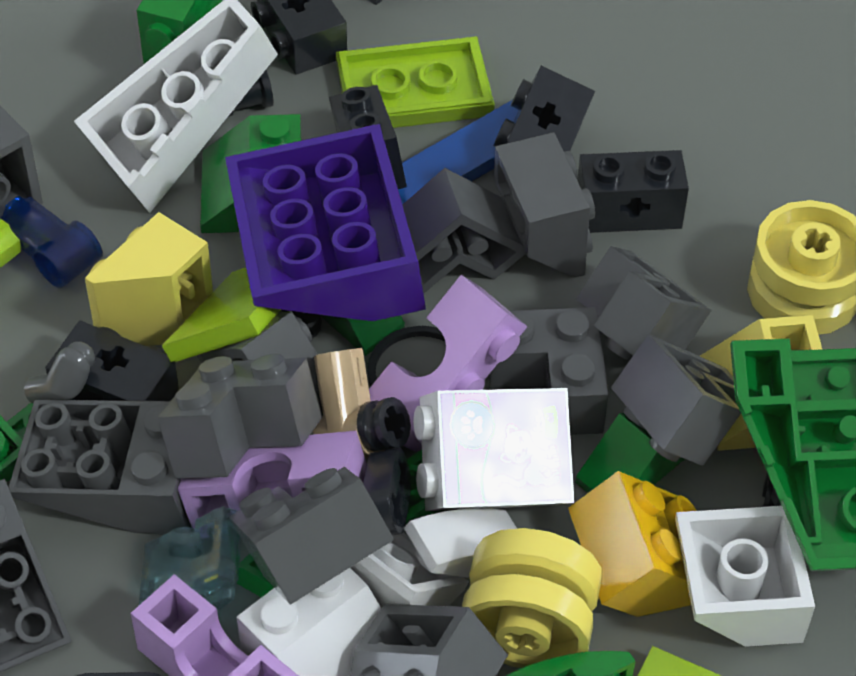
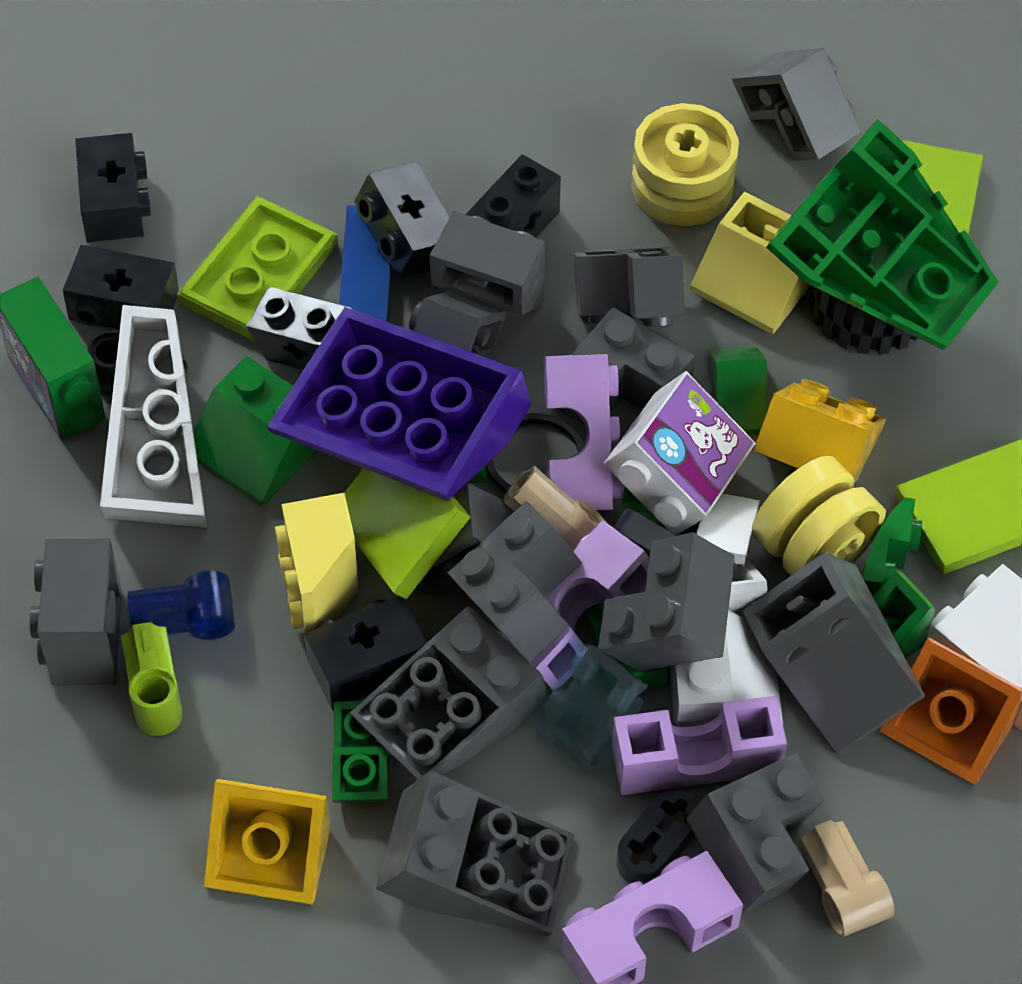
camera: 50 degrees left, 5 degrees up
(65, 376) = (358, 674): dark grey arm -> none
(383, 424) = (599, 502): black bush -> none
(678, 399) = (748, 317): dark grey brick -> none
(746, 574) = (905, 383): white slope -> none

